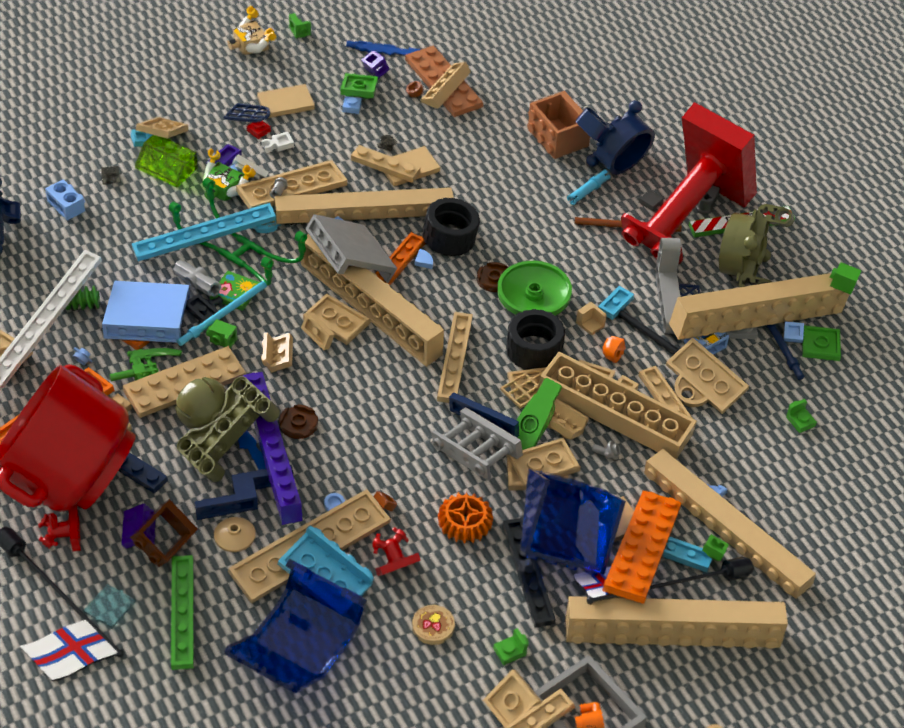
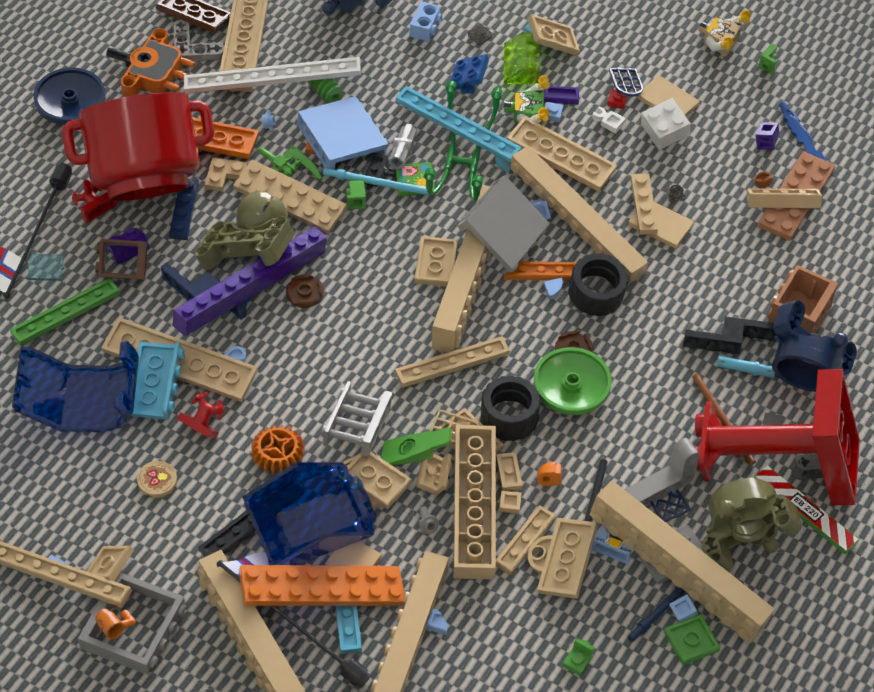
camera: 60 degrees right, 5 degrees up
(152, 199) = (470, 72): none -> blue plate
(234, 540) = (161, 313): tan dish -> none
(240, 162) = (556, 122): white plate -> none
(277, 352) = (364, 237): tan bracket -> none
(280, 185) = (542, 143): light grey pin -> none
(316, 110) = (665, 123): none -> white brick
(317, 331) = (406, 258): tan plate -> none
(352, 105) = (704, 146): light blue plate -> none
(359, 85) = (729, 138): bright green plate -> none
(385, 501) = (257, 387): dark orange tile -> none
(506, 423) = (395, 417): dark blue plate -> none
(512, 647) = (166, 543): bright green bracket -> none
(554, 179) = (731, 337): none -> black bracket
(591, 318) = (574, 440): tan panel -> none
(616, 302) = (611, 451): medium azure plate -> none
(715, 548) = (361, 644): bright green bracket -> none
(844, 277) = (757, 611): bright green brick -> none

